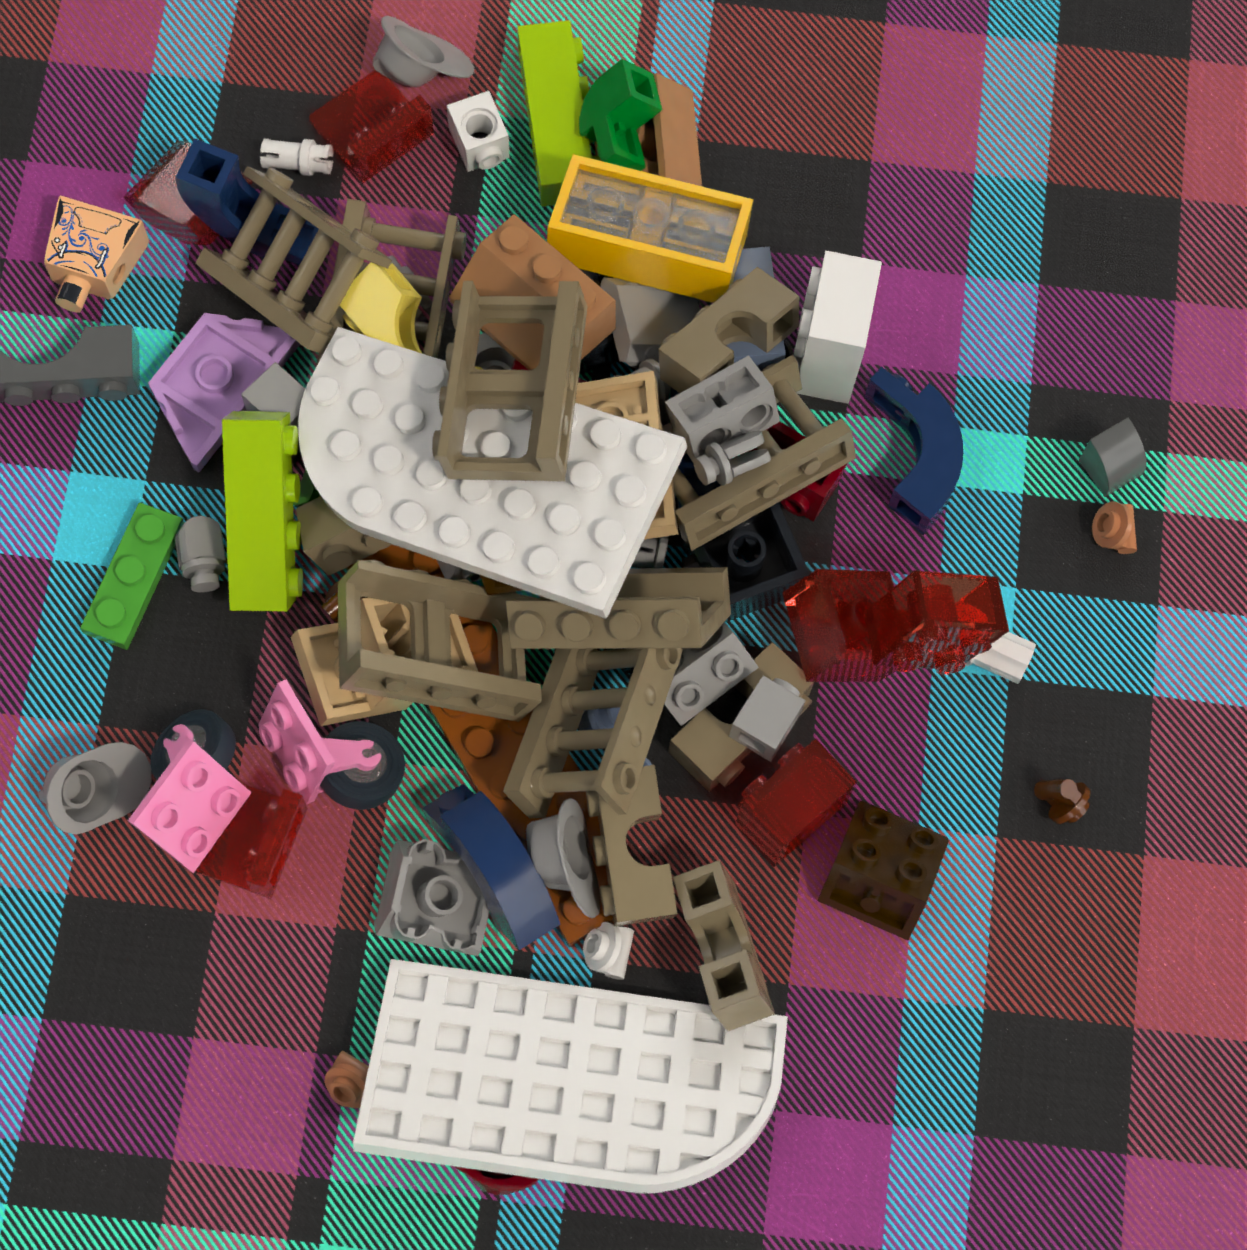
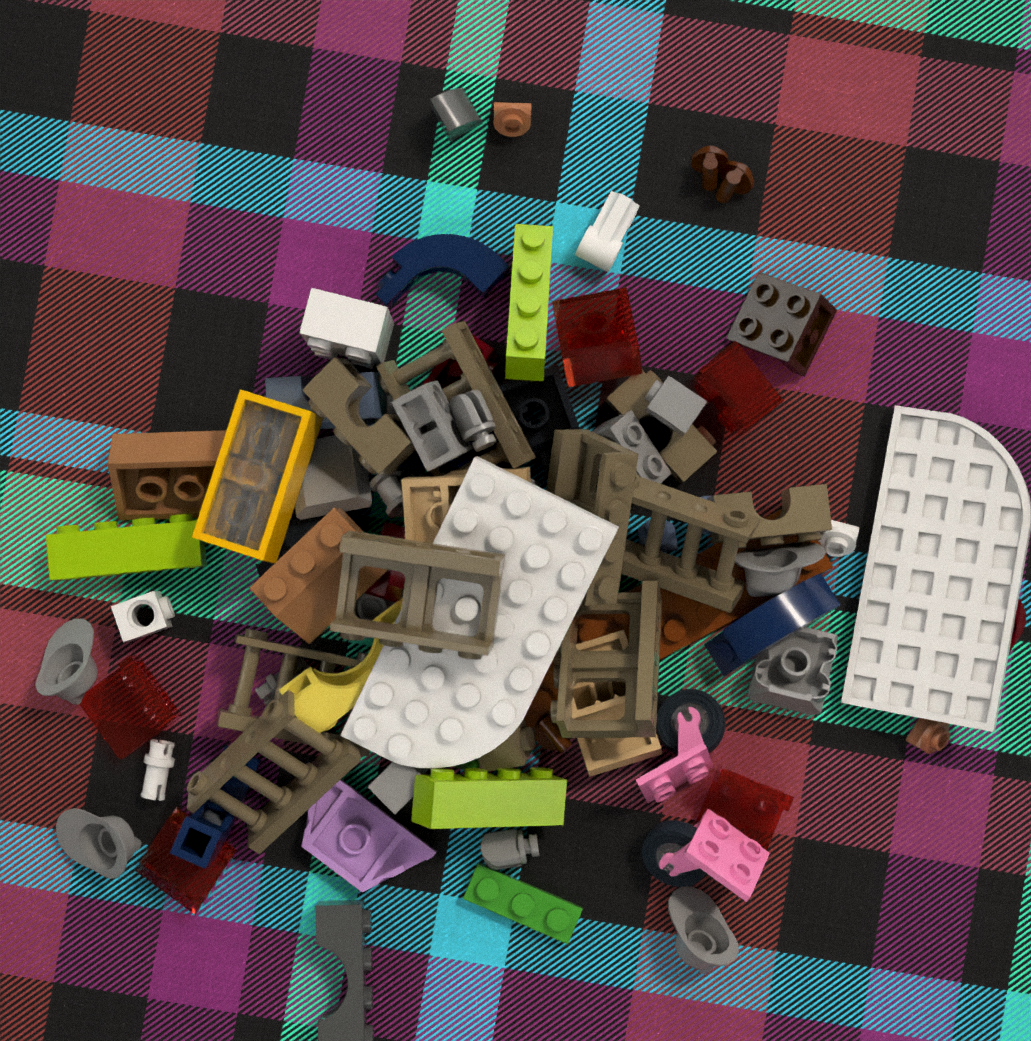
camera: 80 degrees left, 15 degrees up
(91, 251) = (241, 941): light nougat torso -> none
(211, 94) = (97, 841): none -> light grey piece
(615, 109) = (141, 502): green brick -> none
(730, 959) = (867, 443): dark tan arch -> none
(883, 537) = (529, 302): none -> lime brick
(936, 621) = (612, 268): clear red brick -> none
(1083, 766) = (709, 162): none -> reddish brown plate

